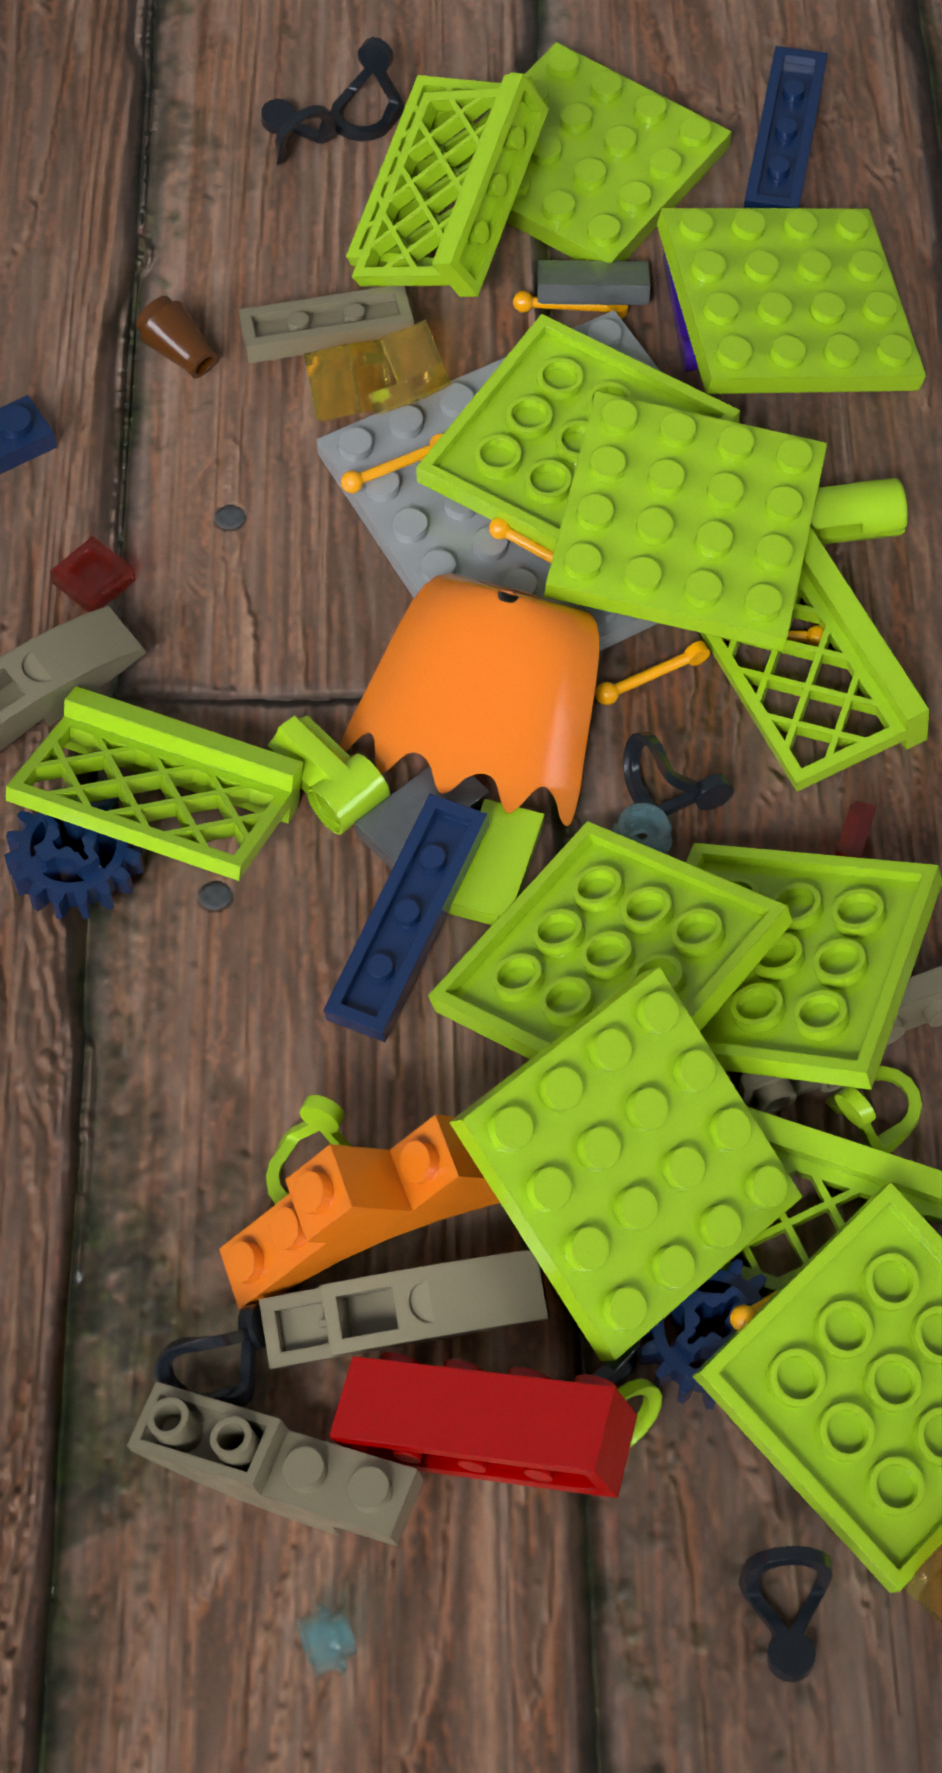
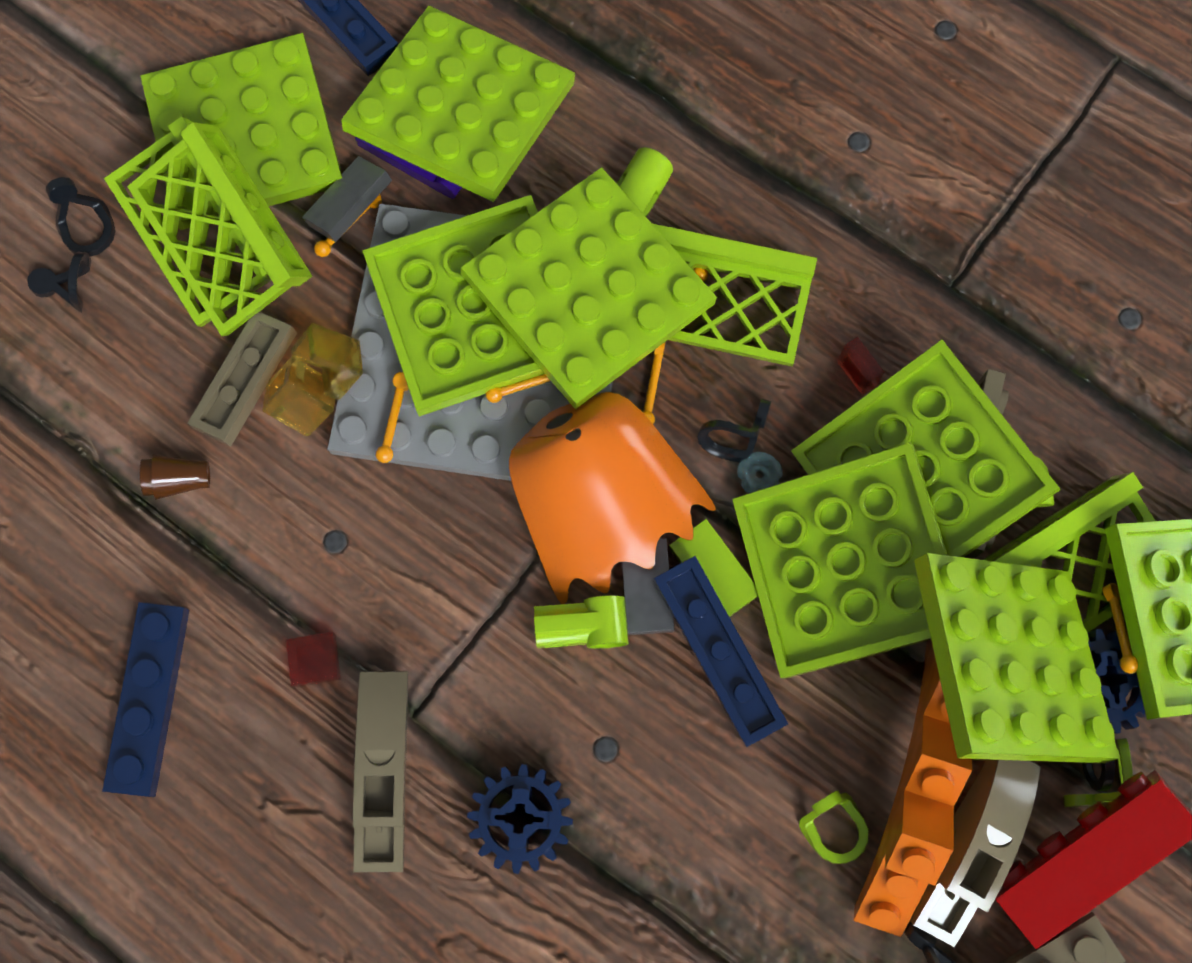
camera: 50 degrees left, 15 degrees up
(166, 756) = (492, 710): lime fence -> none

